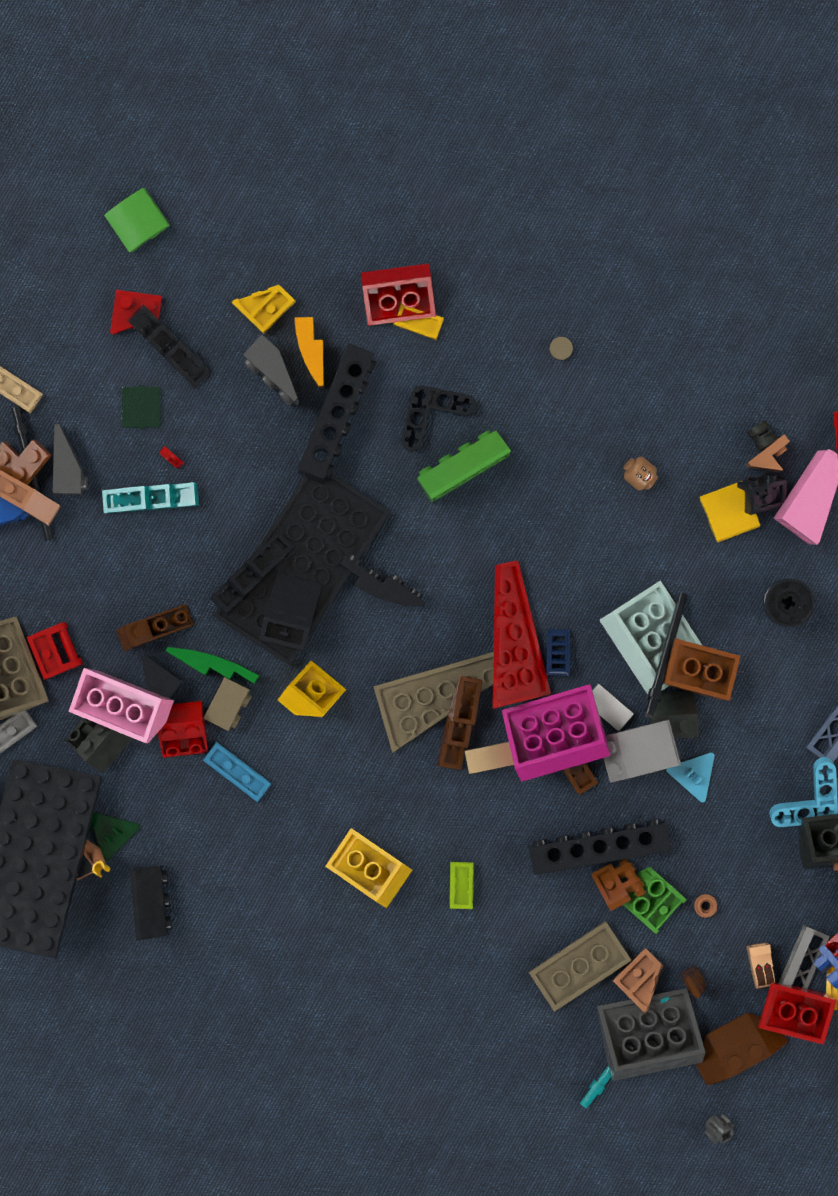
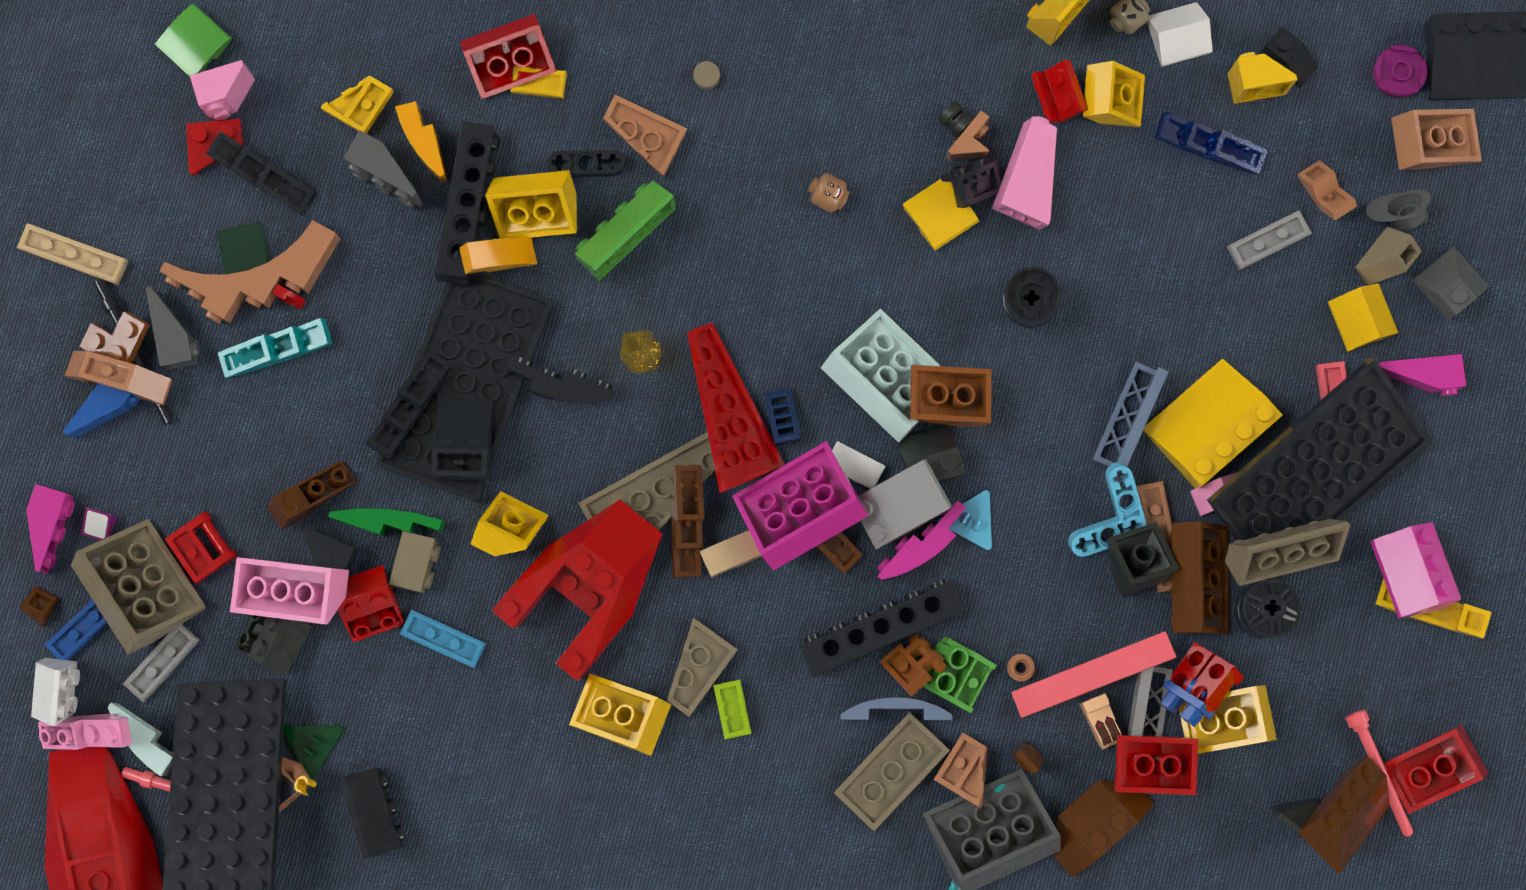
camera: 10 degrees left, 5 degrees down
(118, 442) = (225, 293): none -> nougat arch
(153, 269) = (222, 89): none -> bright pink slope
(353, 464) = (497, 254): none -> light orange slope
(376, 744) = (597, 569): none -> red wedge
(391, 427) = (533, 205): none -> yellow slope
(442, 844) = (699, 667): none -> dark tan wing
(452, 572) = (640, 351): none -> clear yellow brick
(499, 386) = (646, 132): none -> nougat wing
(566, 912) = (929, 711): none -> sand blue slope
(640, 792) = (915, 553): none -> dark pink slope
(655, 693) = (903, 431): black bar -> none
(764, 926) = (1093, 674): none -> coral tile

